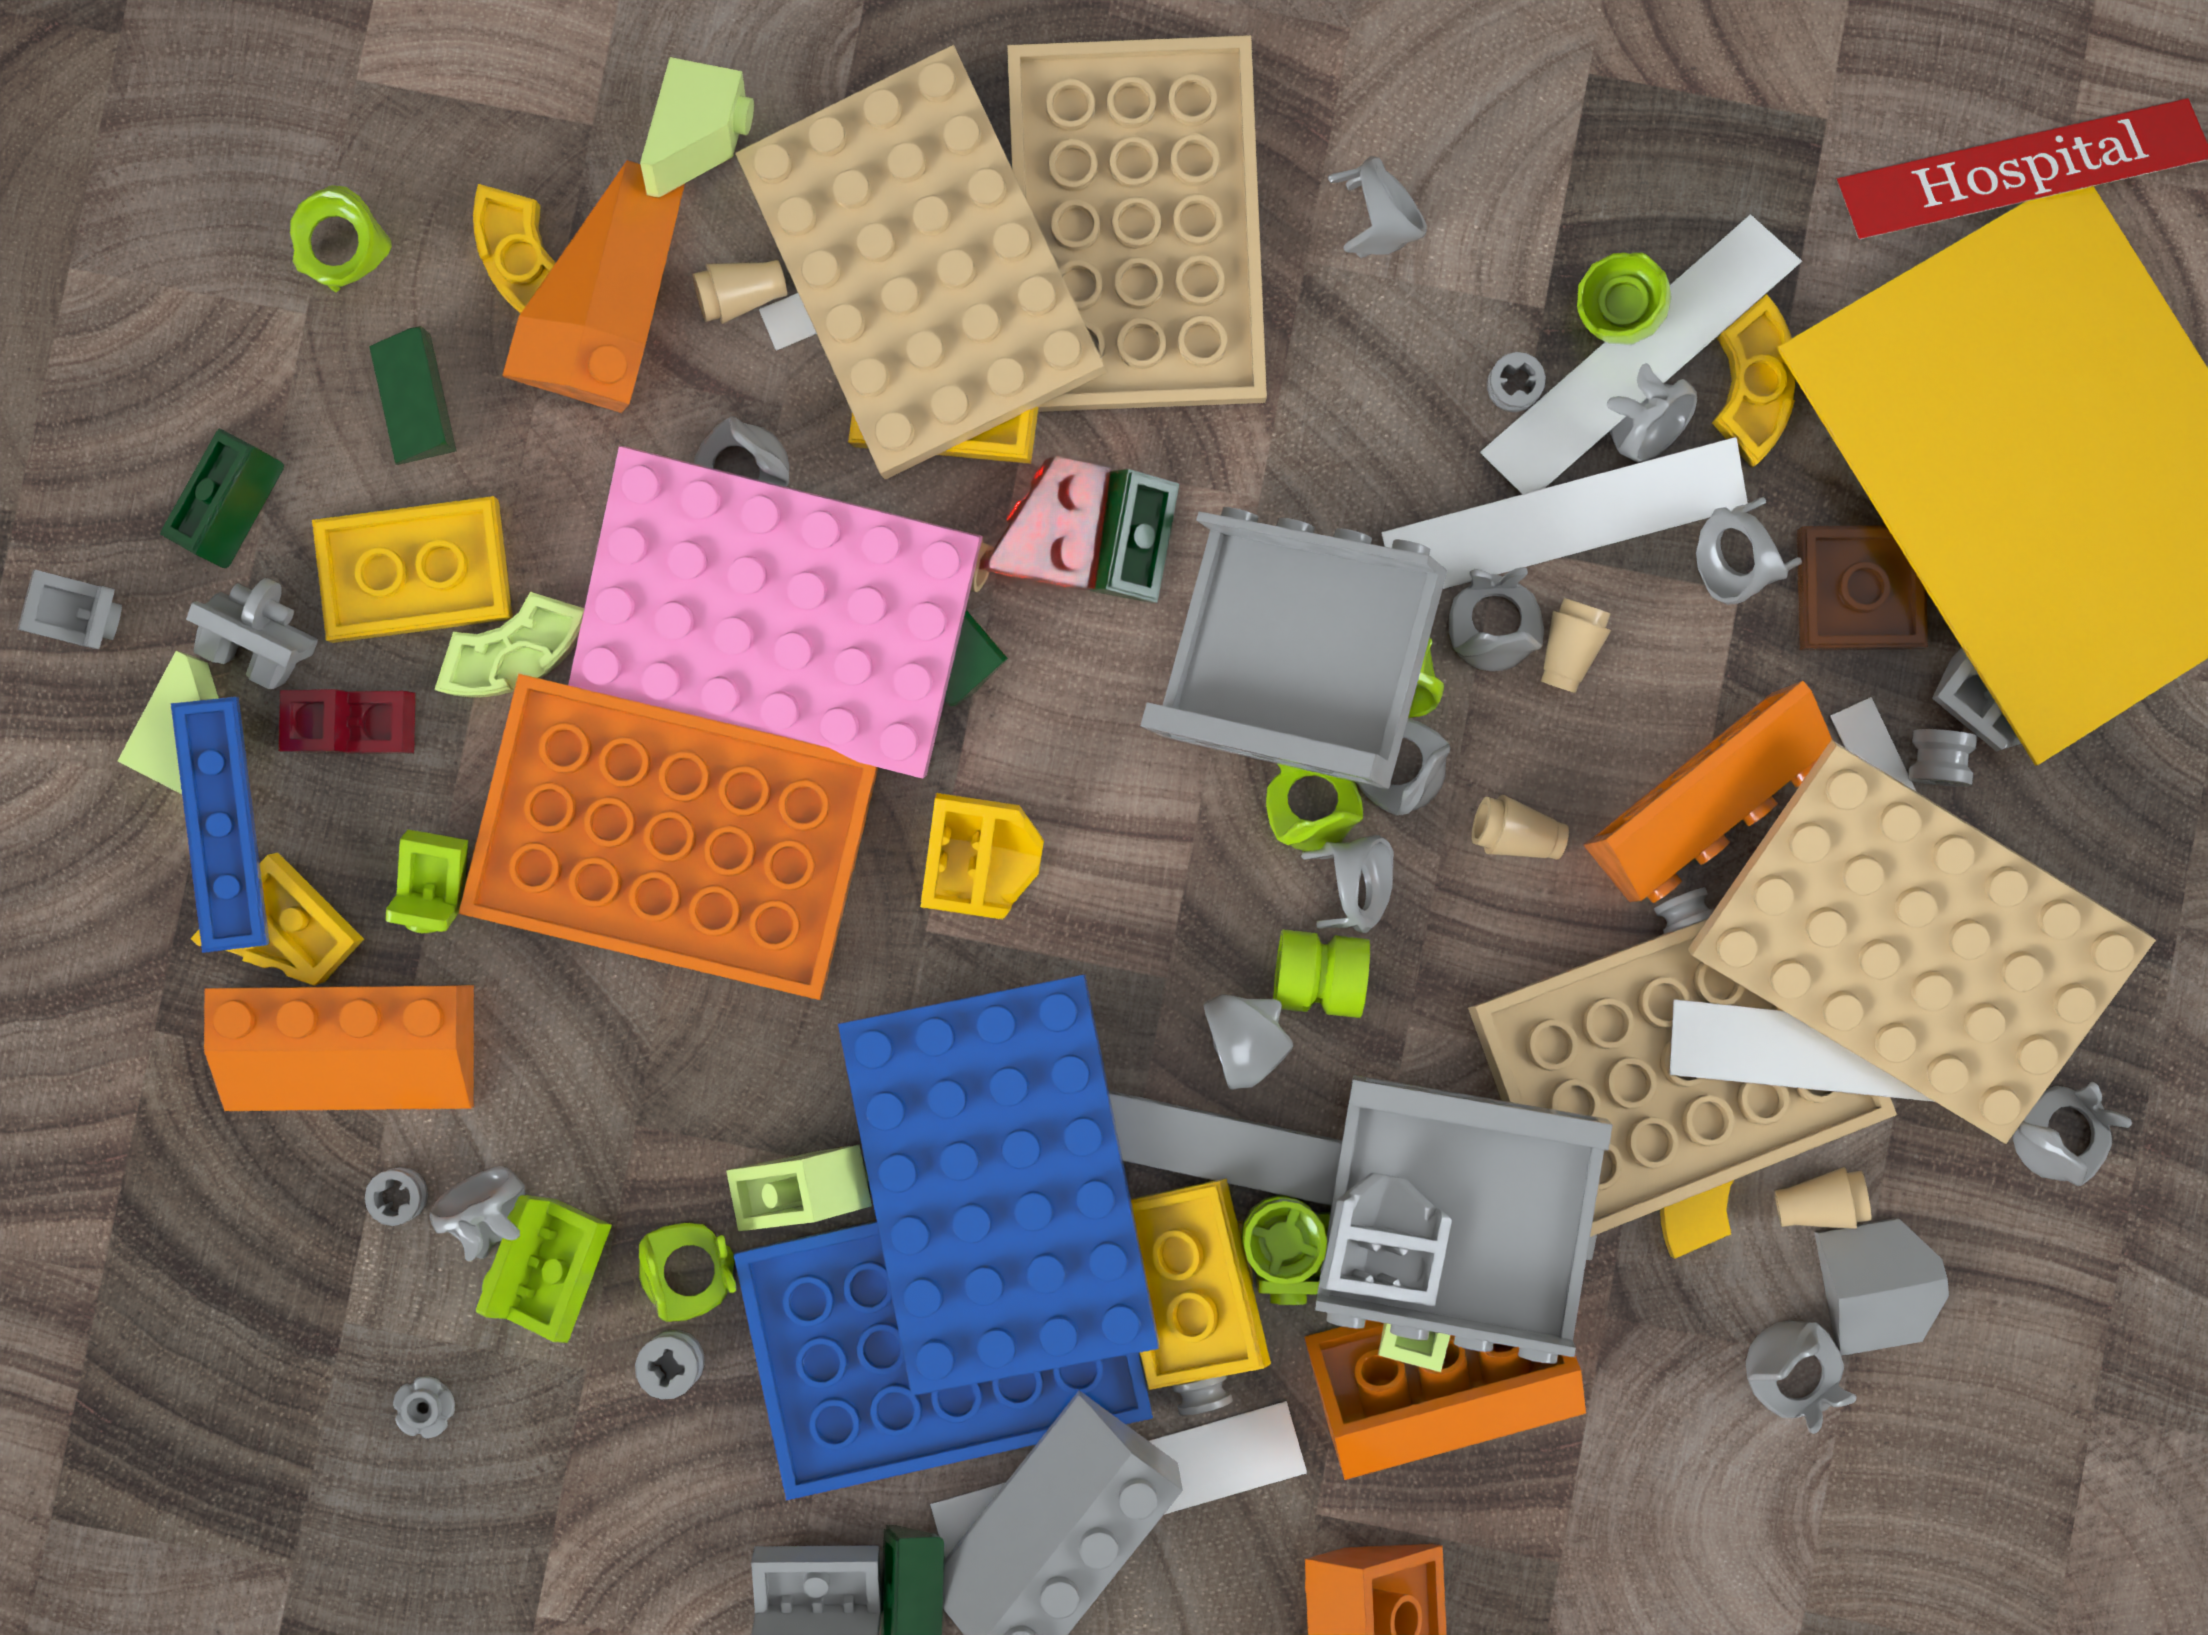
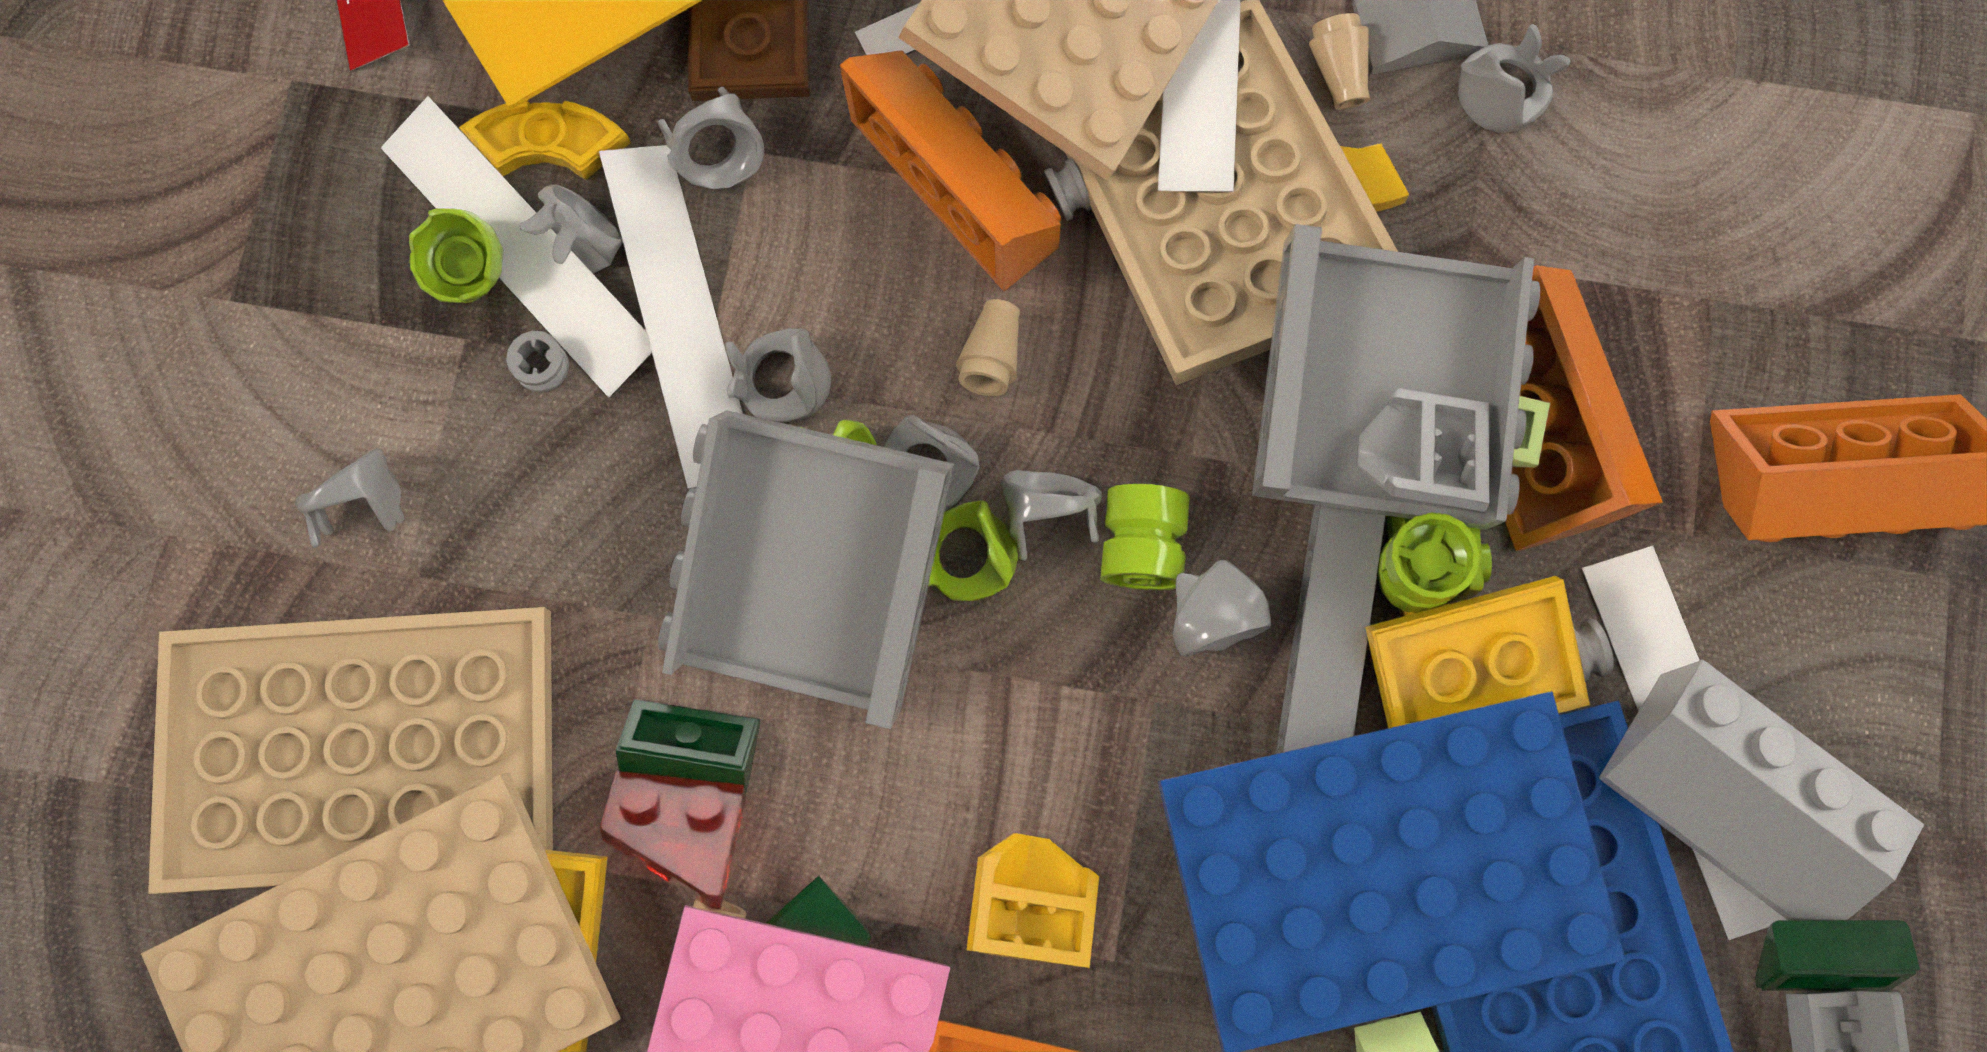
camera: 90 degrees left, 10 degrees down
(1573, 643) = (802, 299): tan cone -> none

